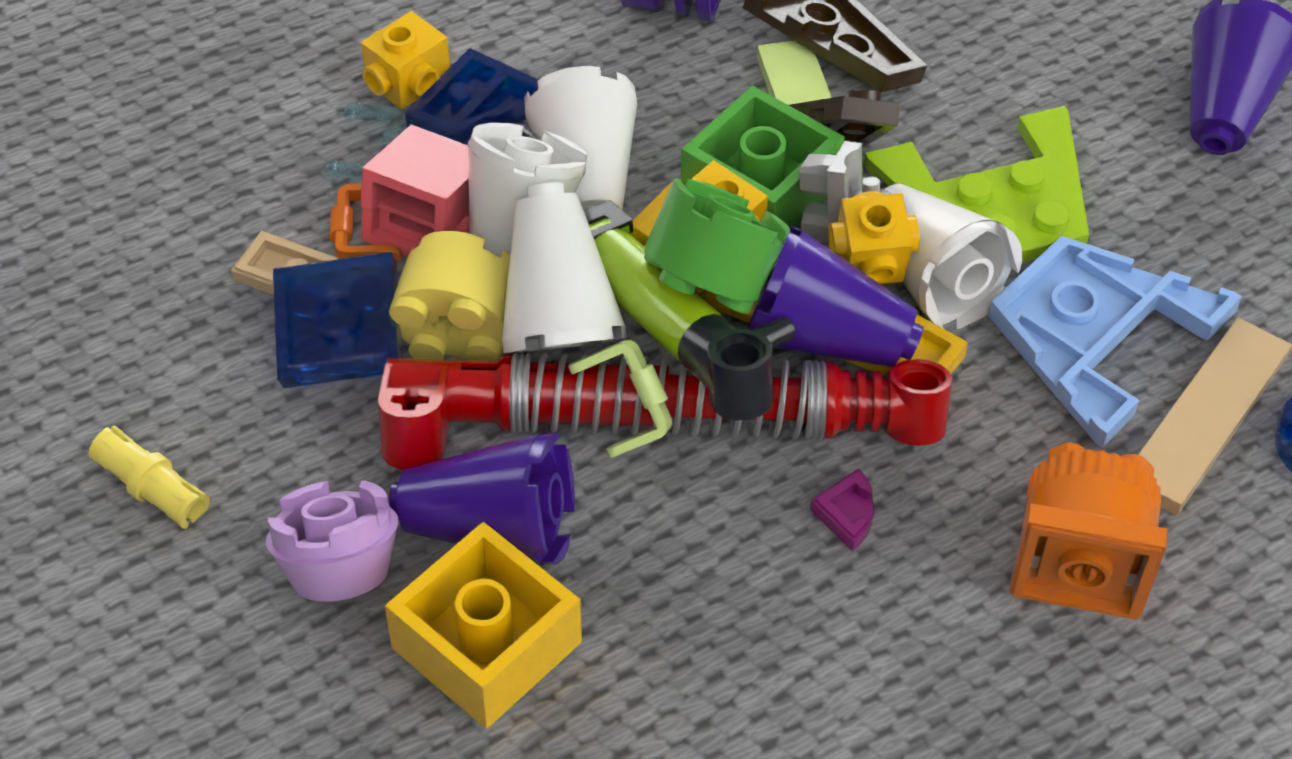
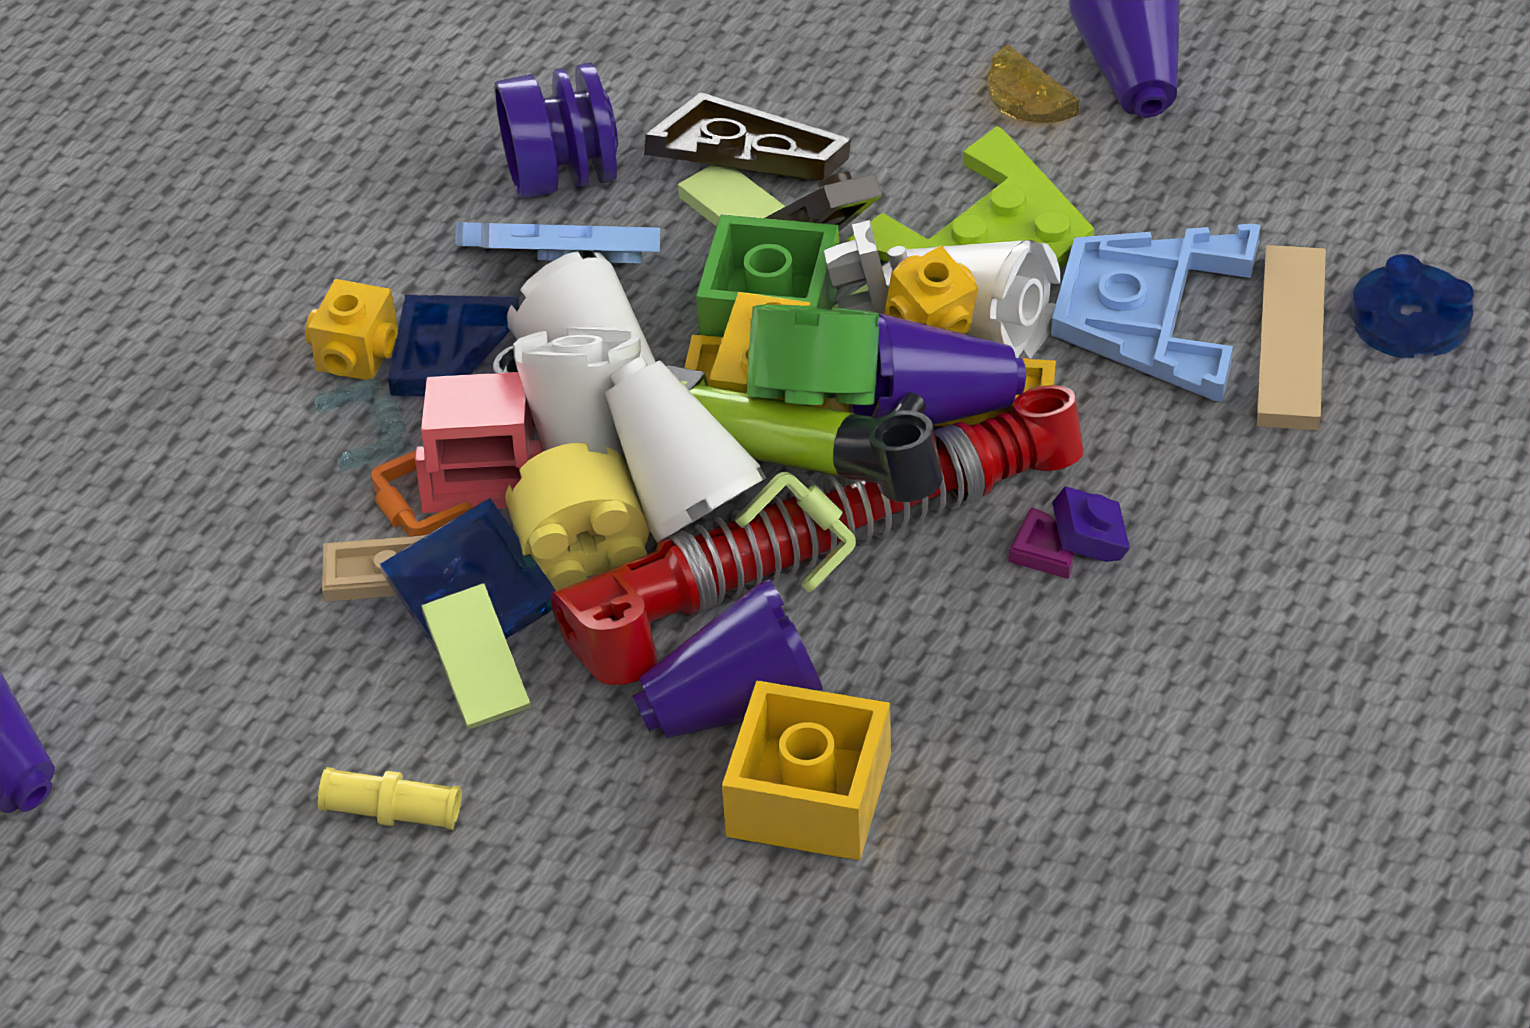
camera: 25 degrees left, 5 degrees down
(296, 385) = (475, 656): none -> yellowish green tile
(333, 541) = (621, 764): lavender cone -> none
(597, 43) = (554, 241): none -> light blue wing
(898, 511) = (1090, 525): none -> dark purple plate
(1090, 532) = (1271, 465): orange piece -> none
(1112, 84) = (1026, 91): none -> clear yellow plate

